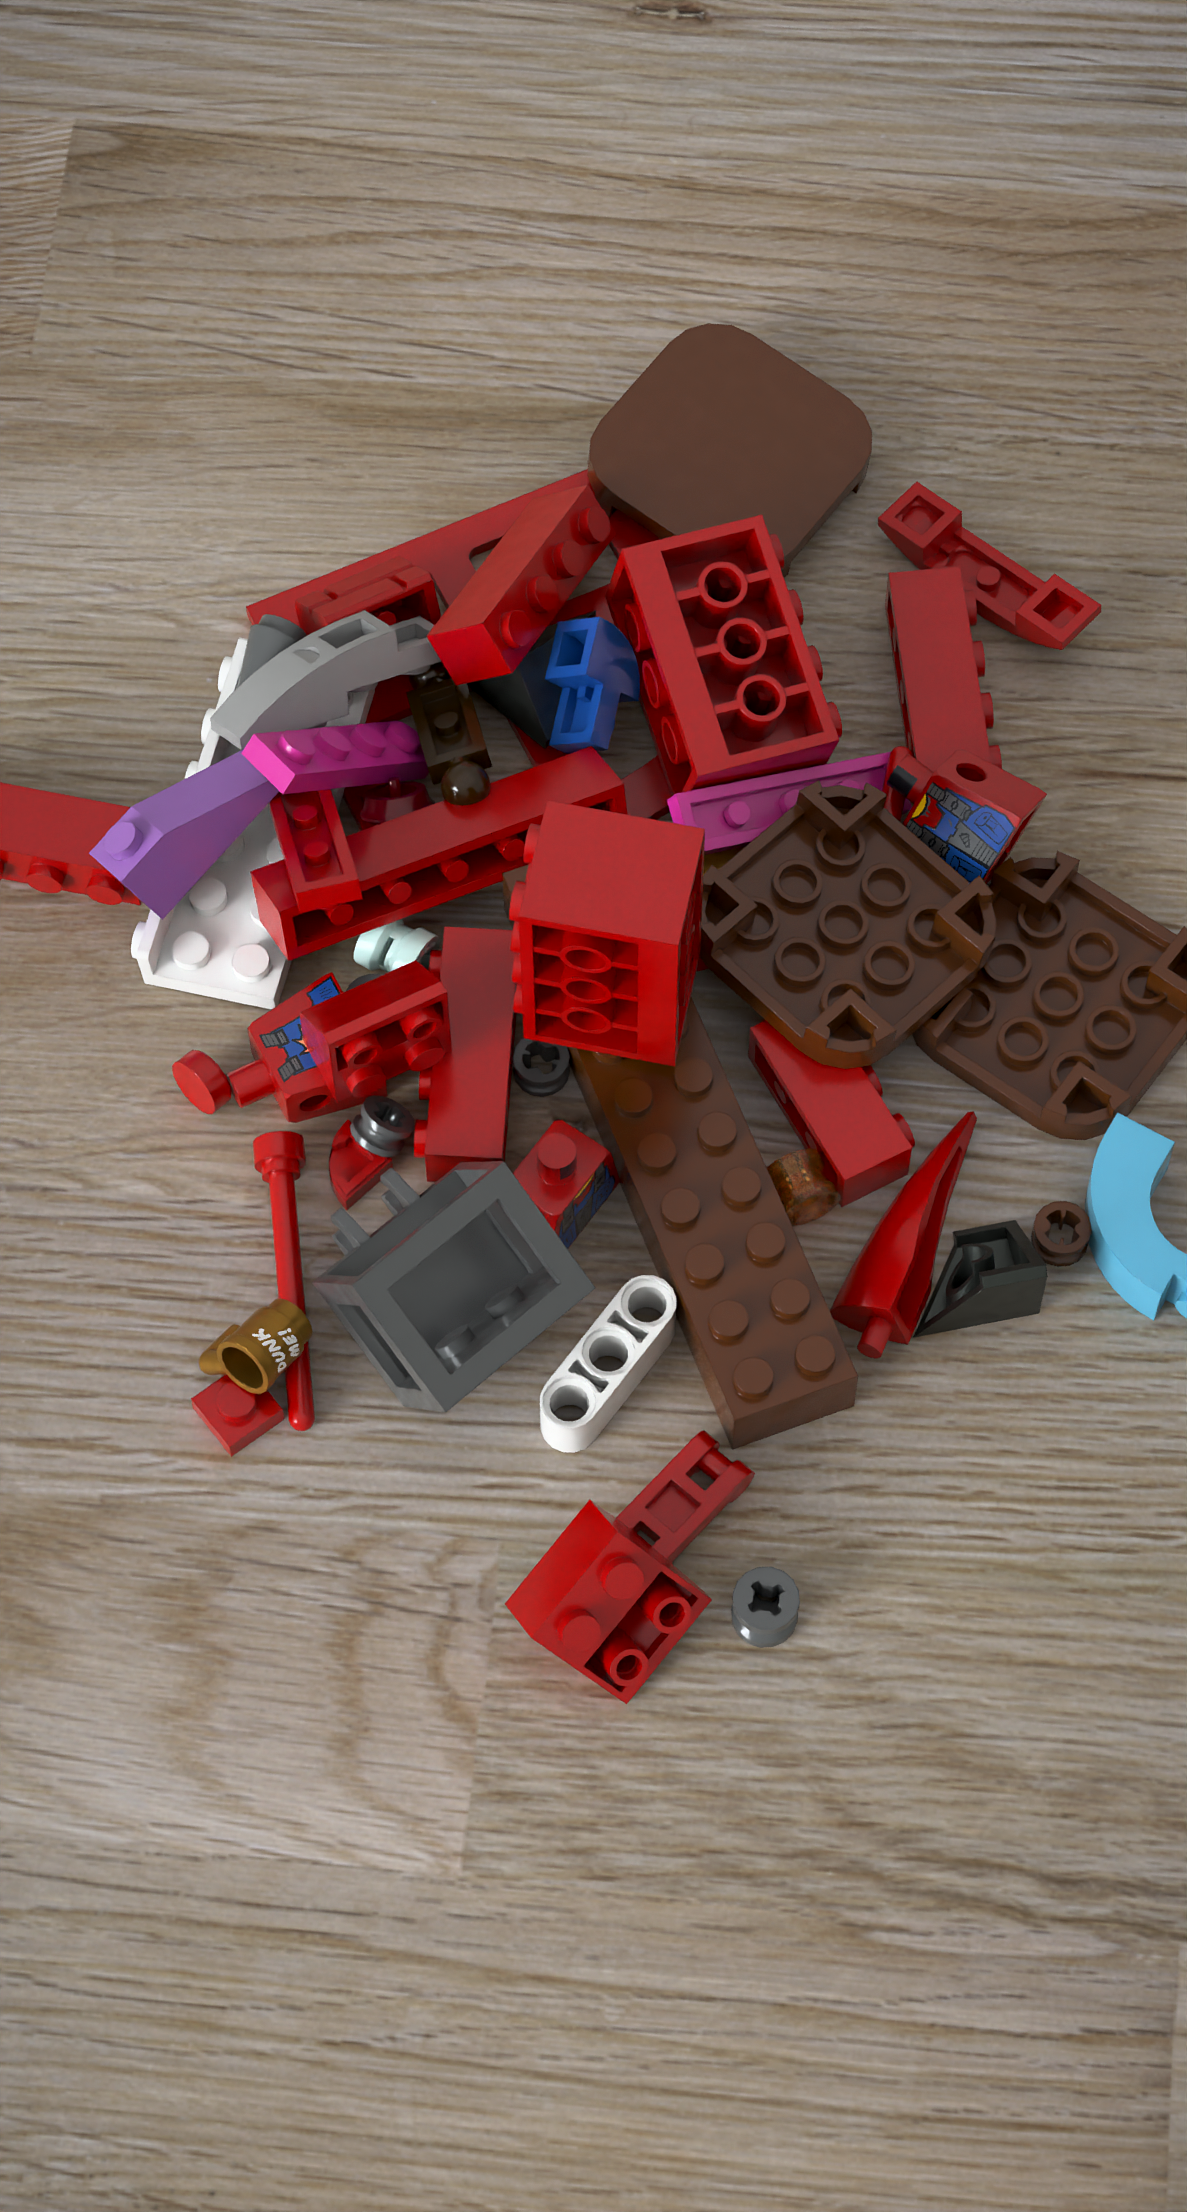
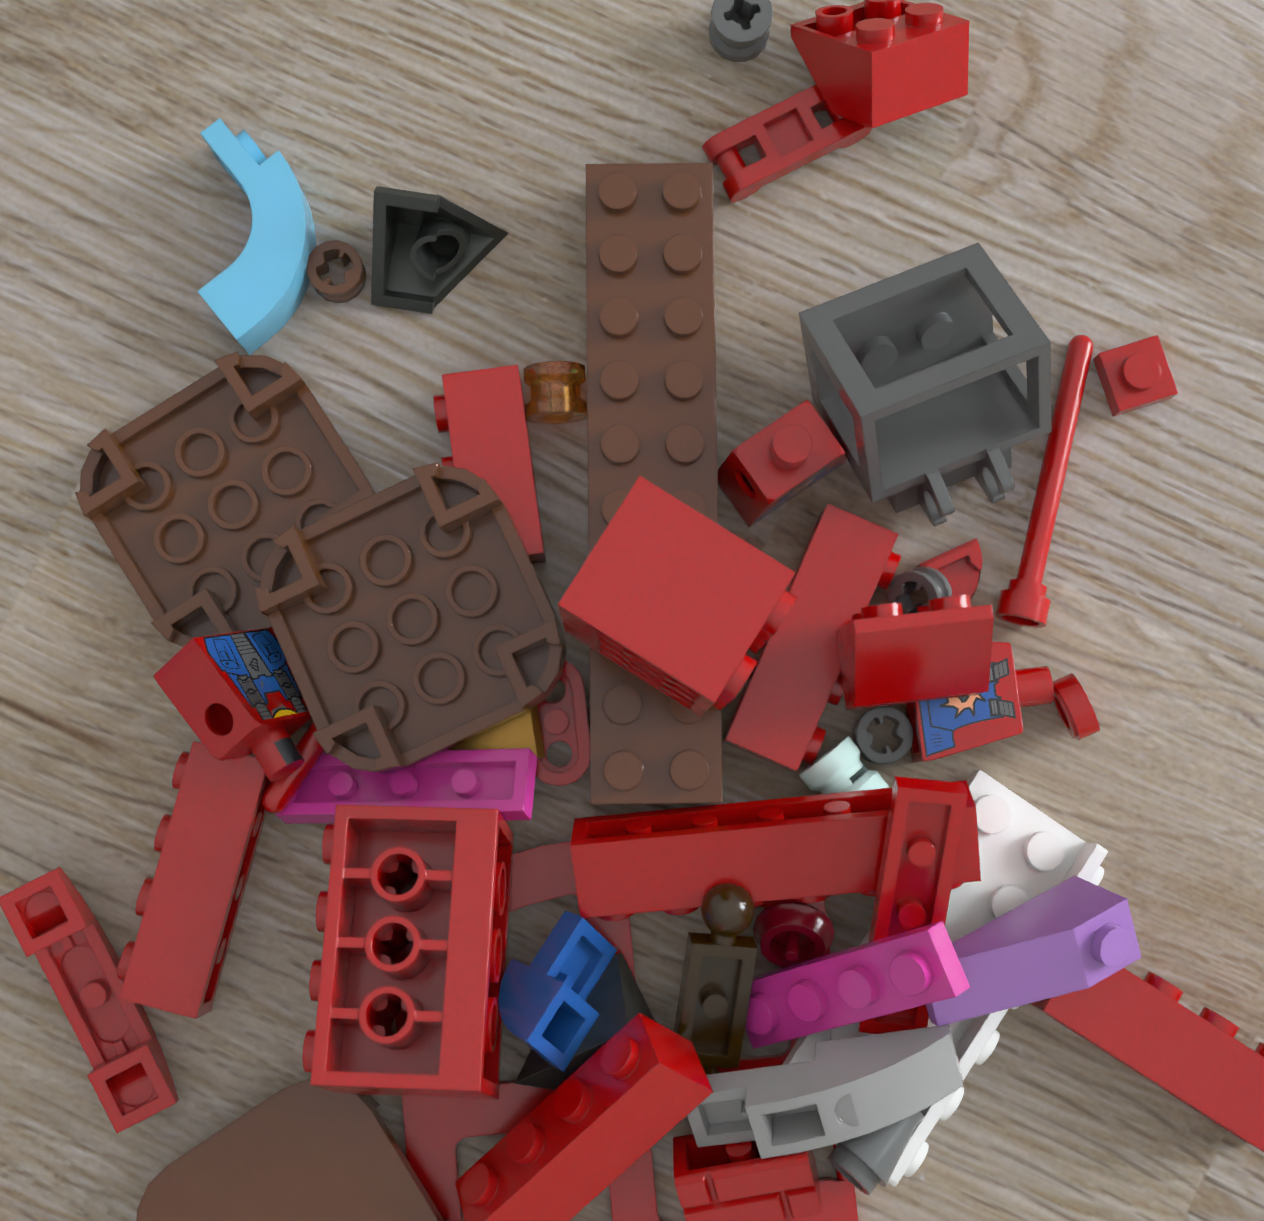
camera: 165 degrees left, 20 degrees up
(260, 1347) = (1110, 398): pearl gold piece -> none
(600, 1391) = (808, 260): white beam -> none
(896, 1266) = (496, 299): red piece -> none

